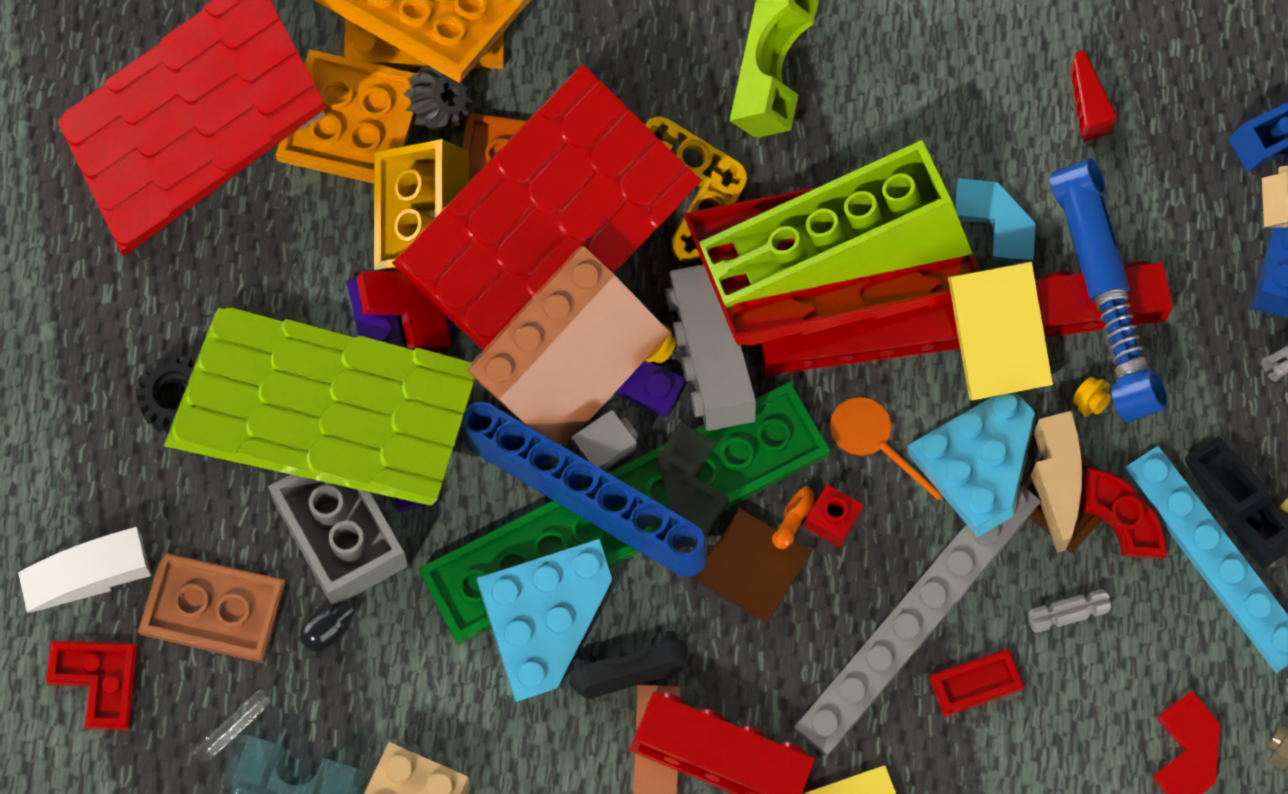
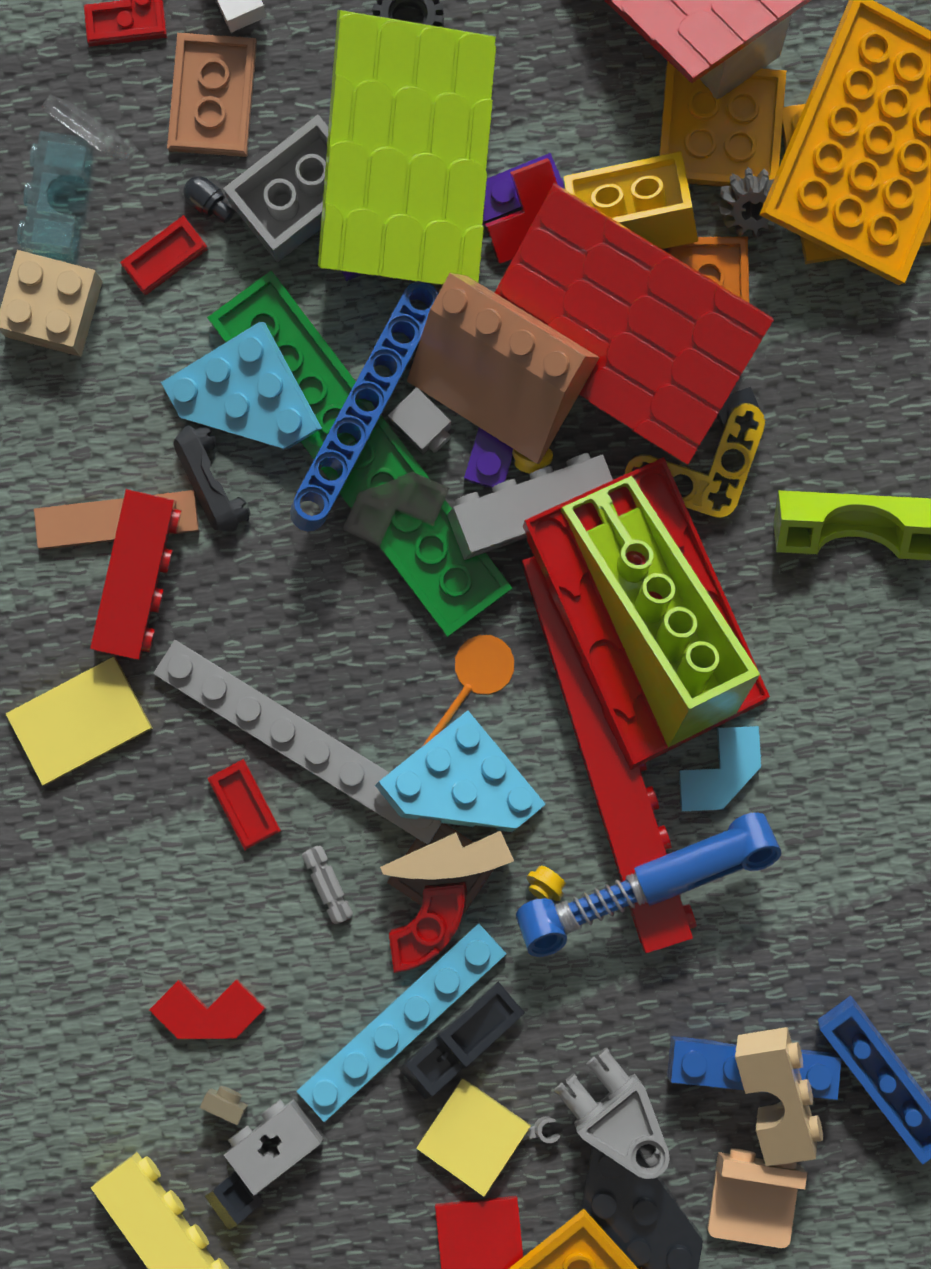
camera: 85 degrees right, 15 degrees up
(377, 682) = (164, 255): none -> red tile
(750, 568) = (326, 580): reddish brown tile -> none
(794, 513) = (383, 612): orange piece -> none
(833, 528) = (391, 662): red plate -> none
(1000, 330) = (589, 783): light yellow tile -> none
(1093, 106) = (859, 853): red slope -> none

